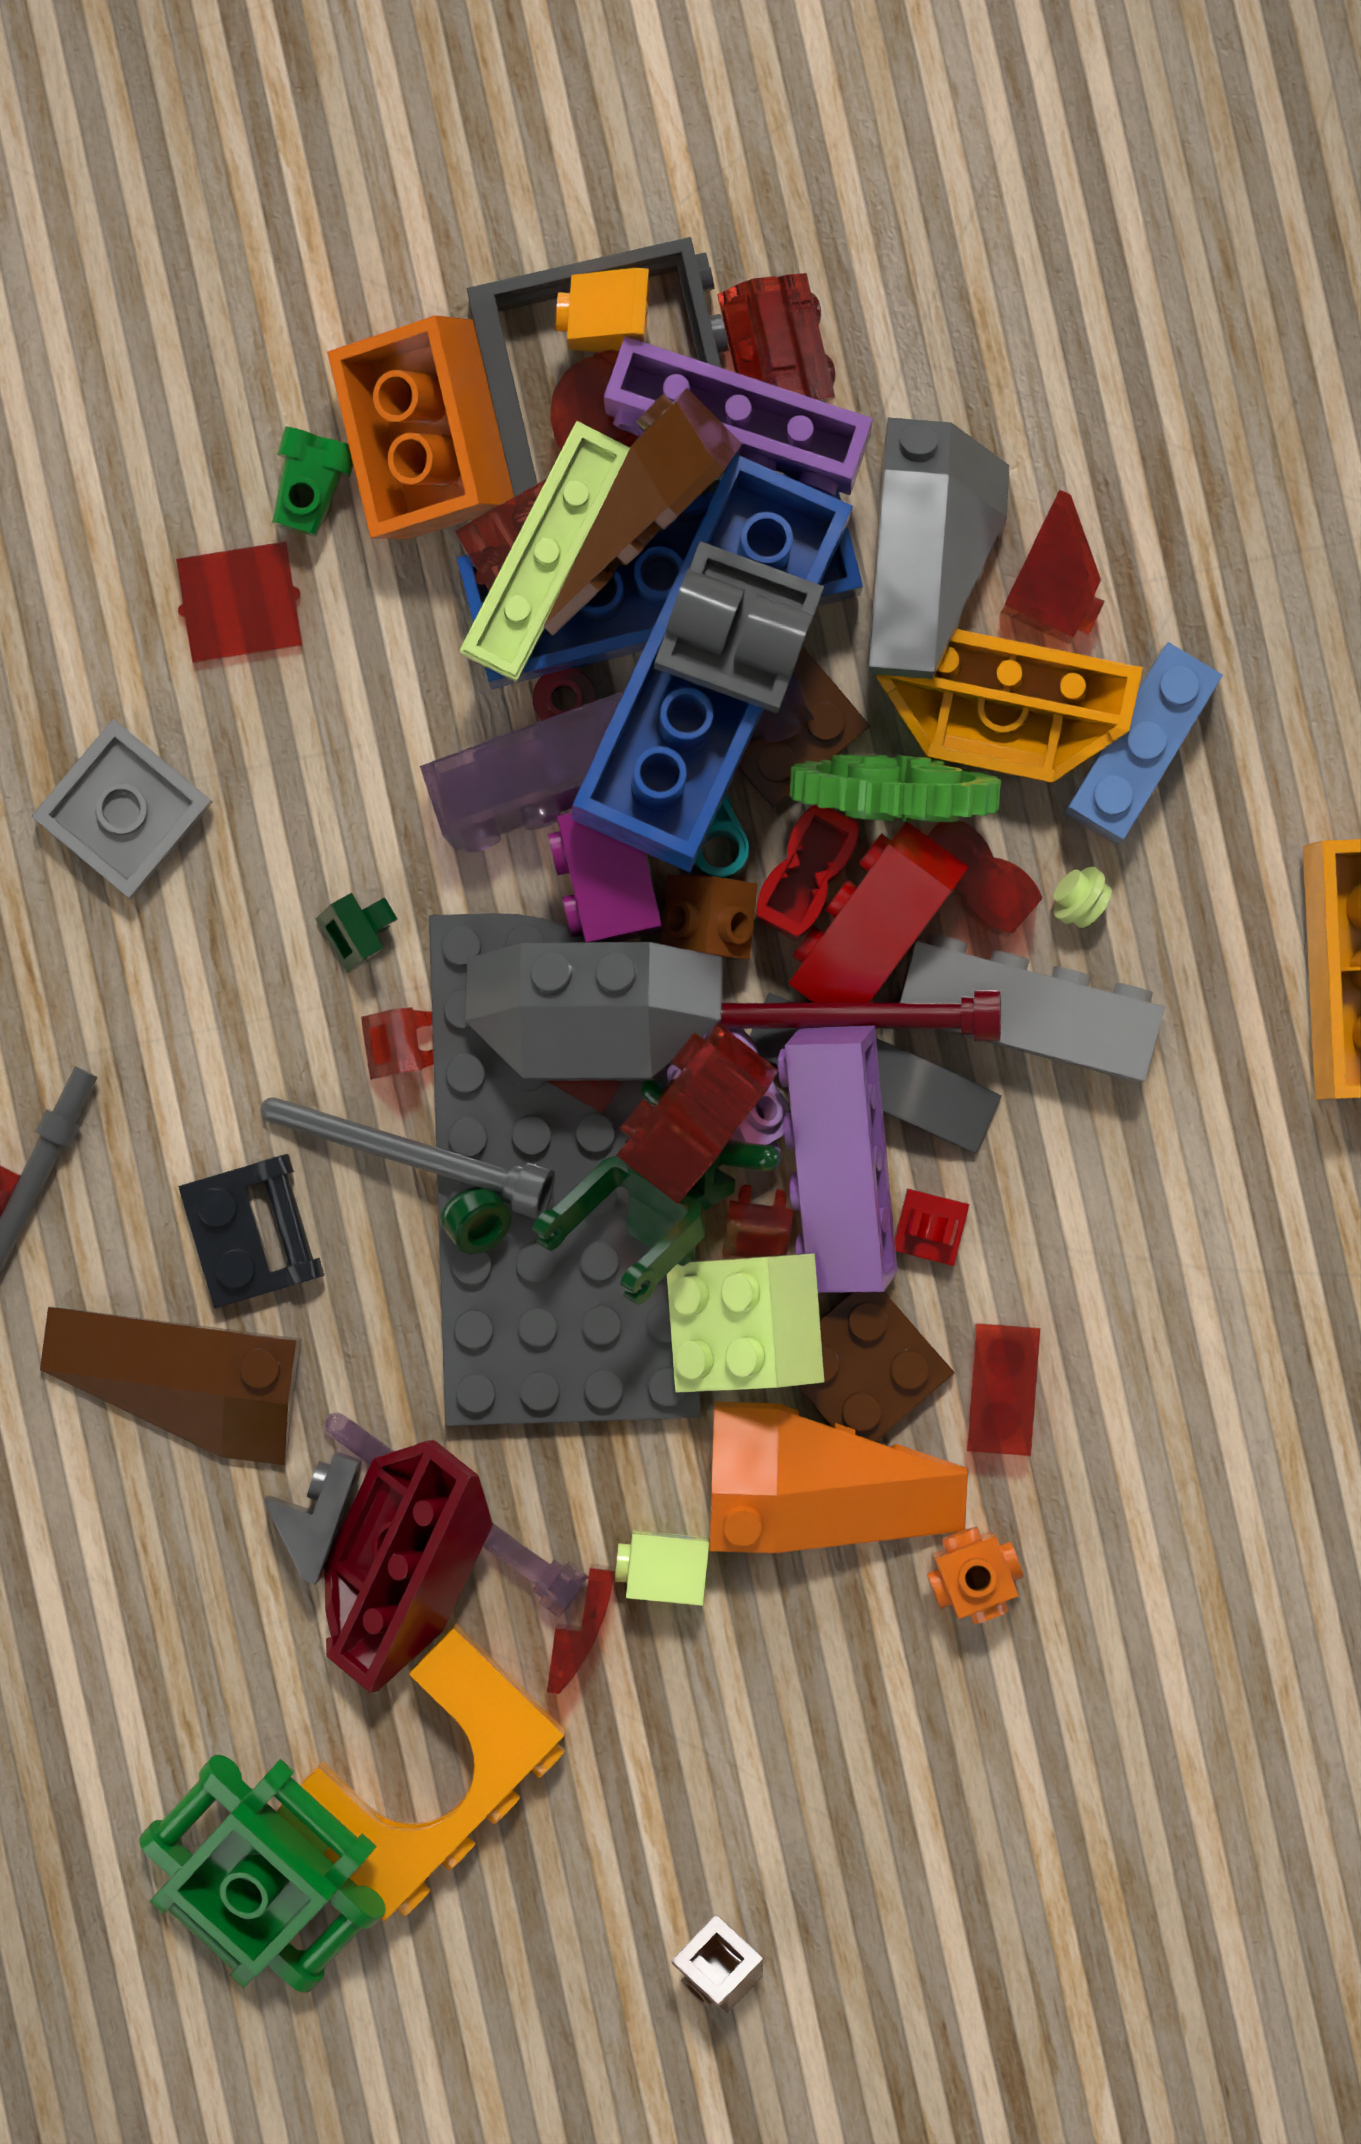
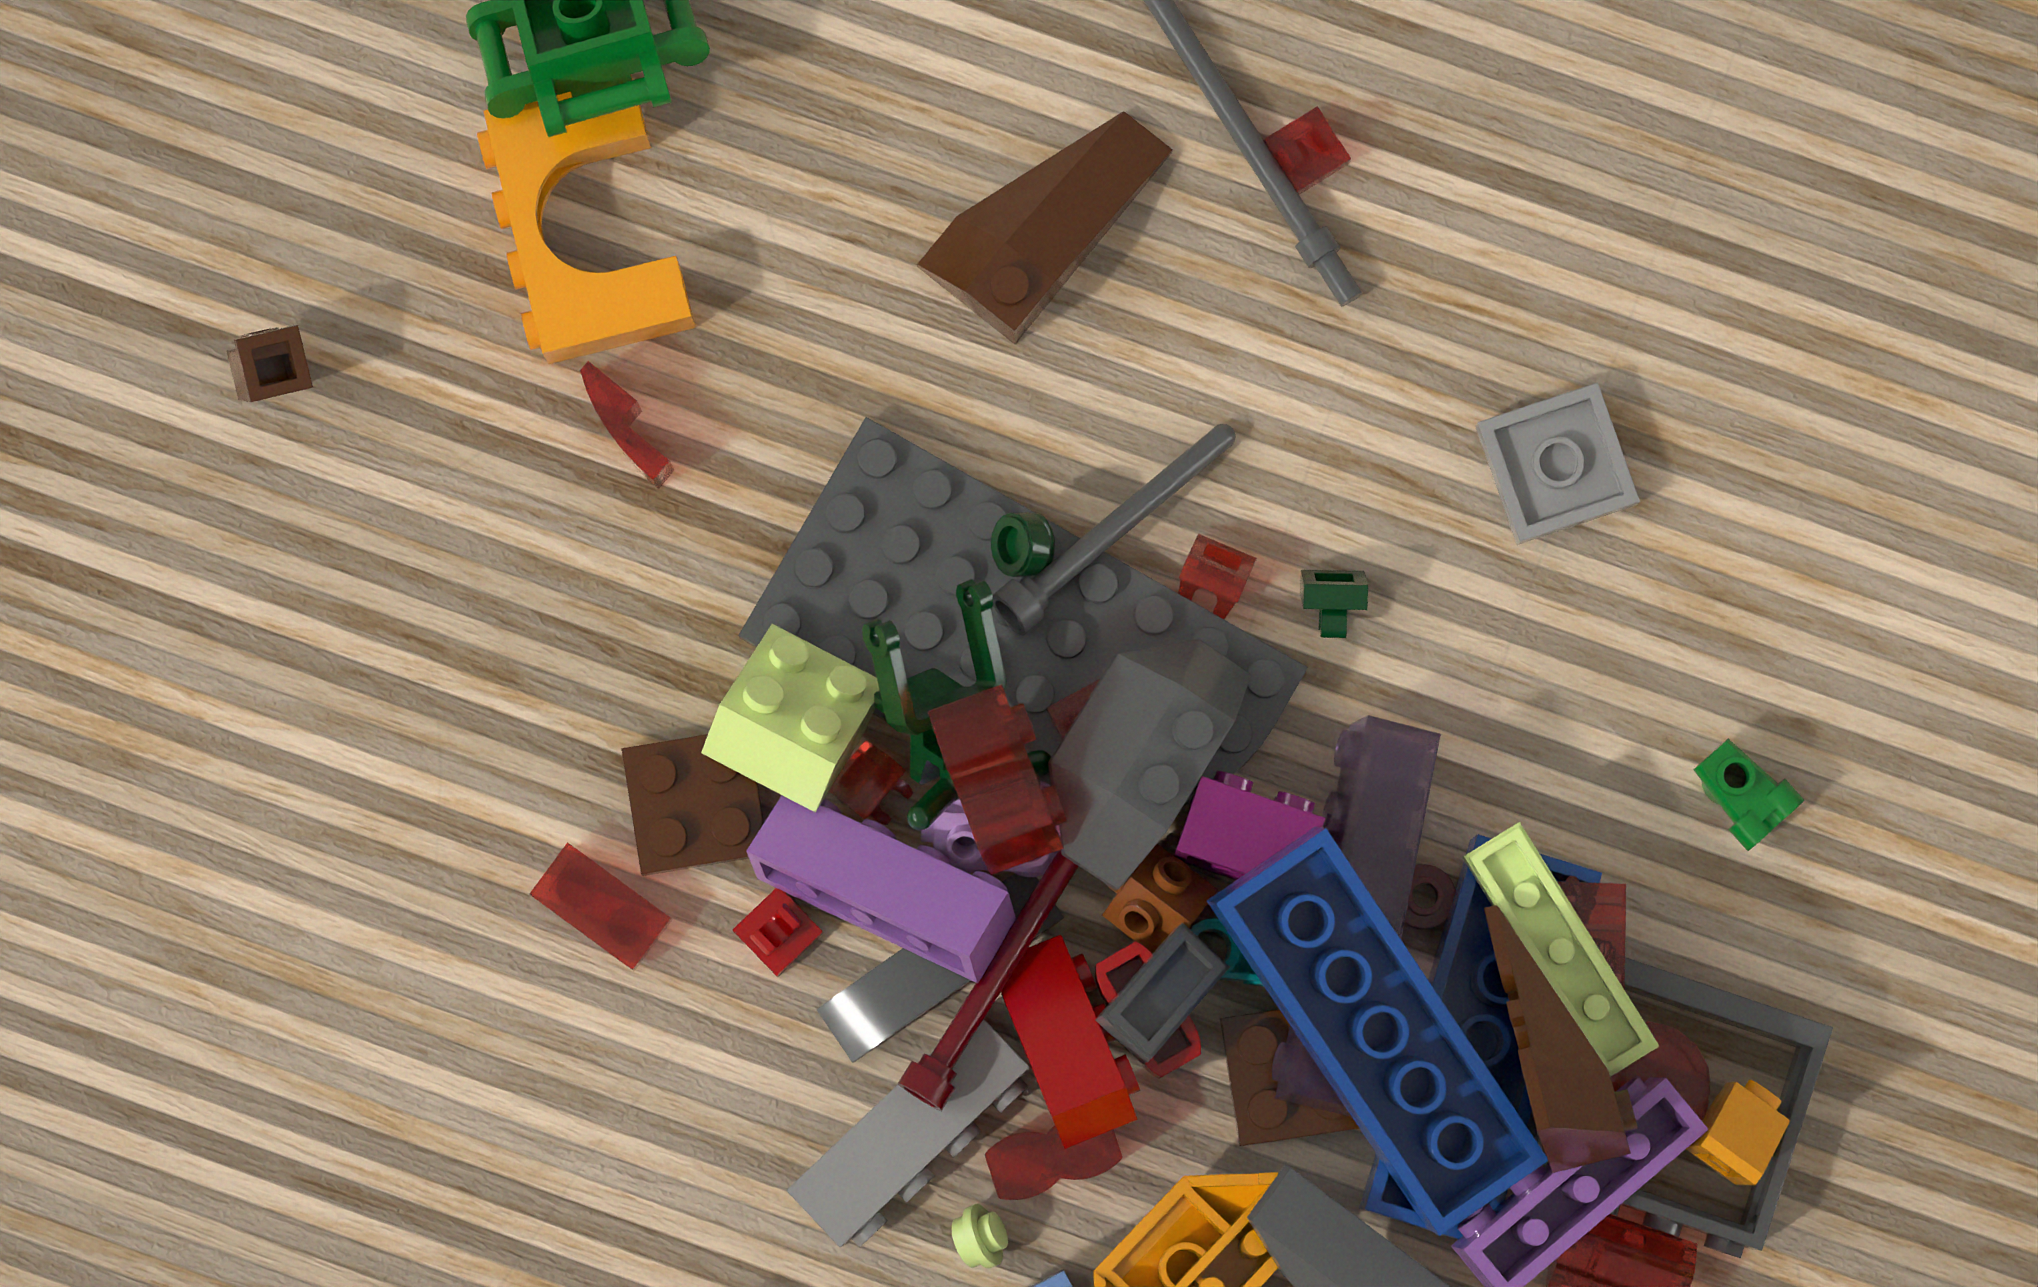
camera: 125 degrees right, 5 degrees down
(230, 1235) = (1134, 335): black plate -> none
(239, 602) = (1675, 672): clear red piece -> none
(310, 1532) = (846, 250): flat silver slope -> none
(402, 1560) = (773, 307): dark red wedge -> none
(421, 427) = (1734, 913): orange brick -> none
(552, 1581) = (678, 426): piece -> none
(663, 1567) = (631, 526): yellowish green brick -> none
(738, 627) = (1393, 1066): dark grey plate -> none
(788, 864) = (1162, 993): none -> dark grey tile
(813, 1485) = (622, 688): orange wedge -> none
(895, 788) = (1168, 1133): bright green gear -> none
(961, 1553) = (482, 789): orange brick -> none

